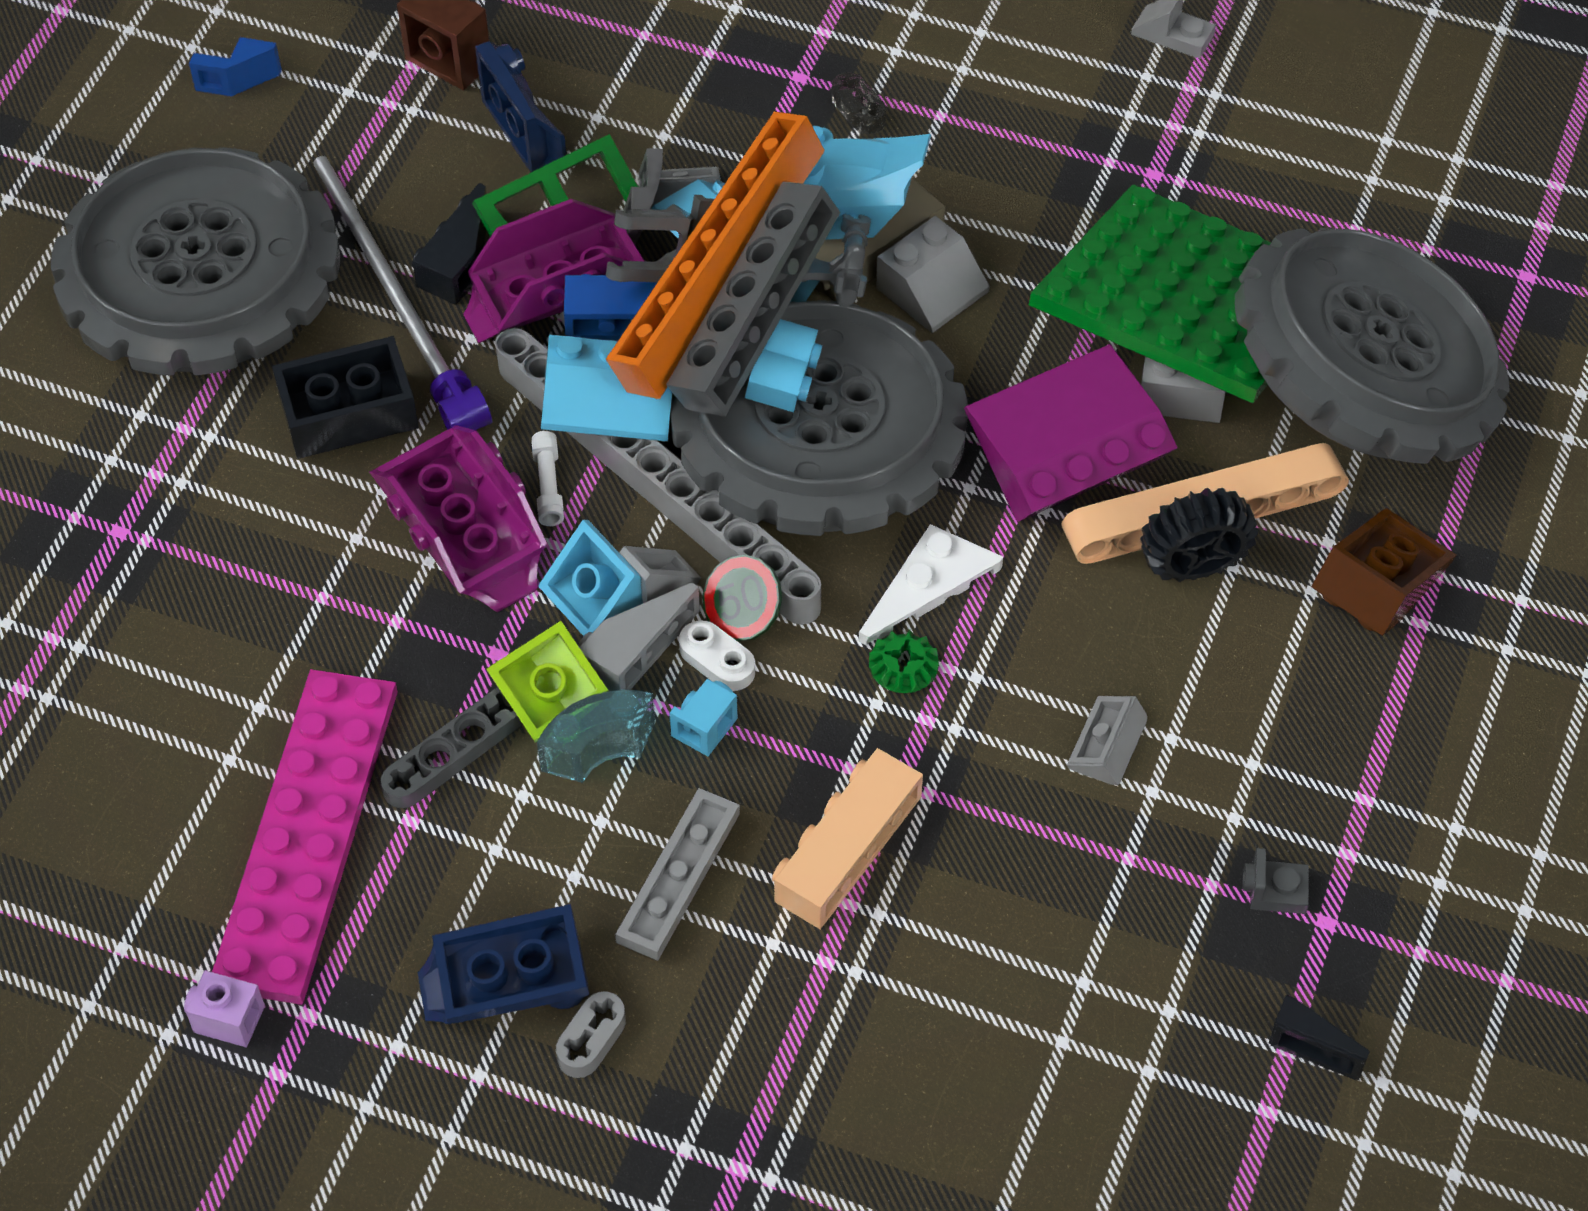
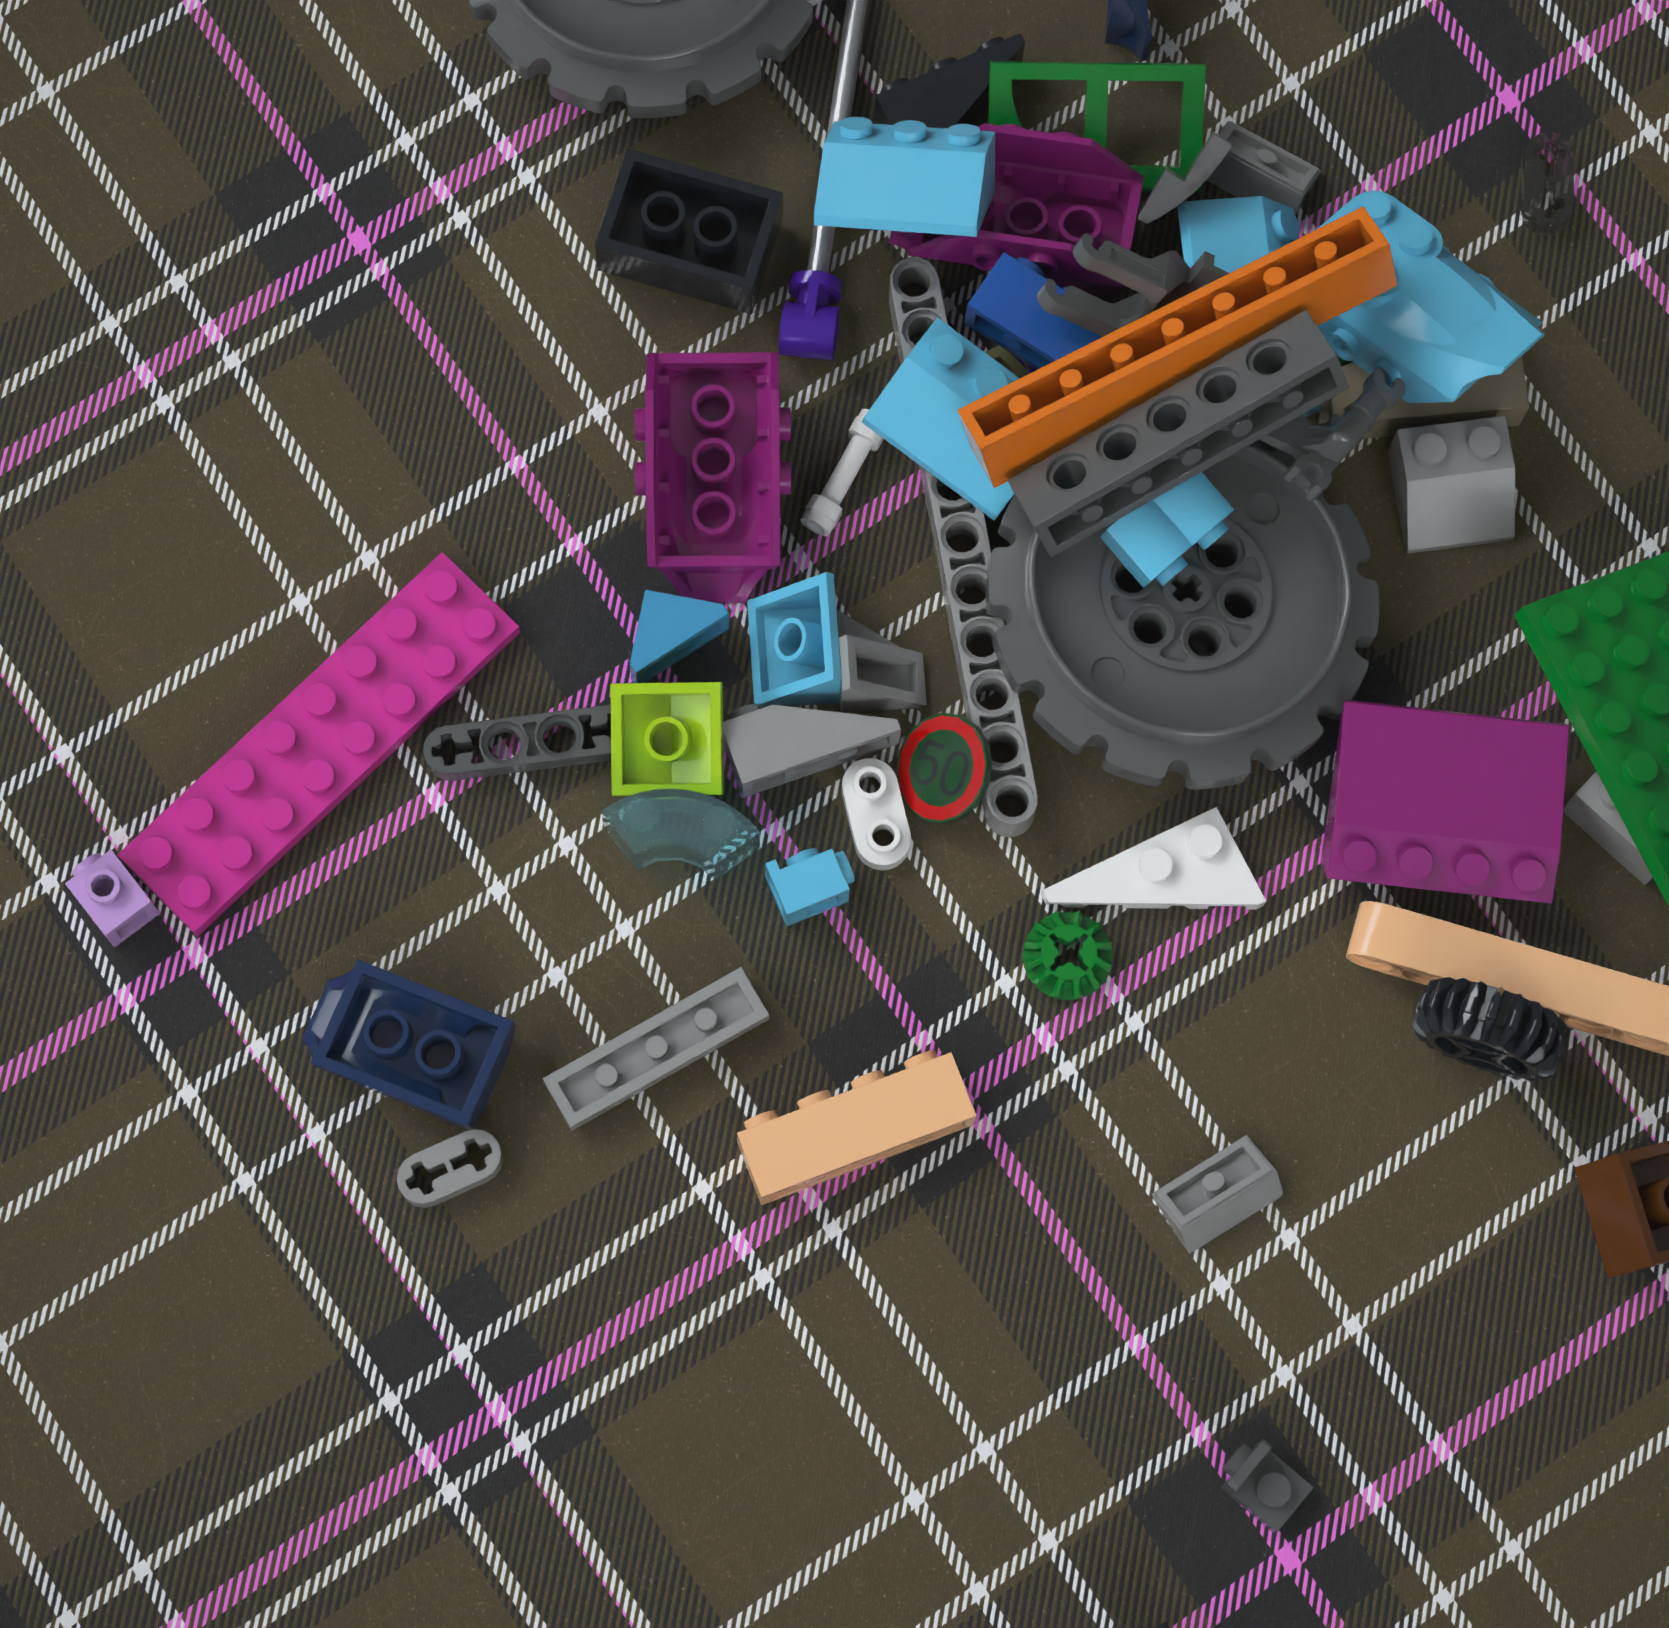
camera: 30 degrees right, 20 degrees up
(468, 278) = (905, 177): none -> medium azure slope
(503, 620) = (671, 630): none -> dark azure slope

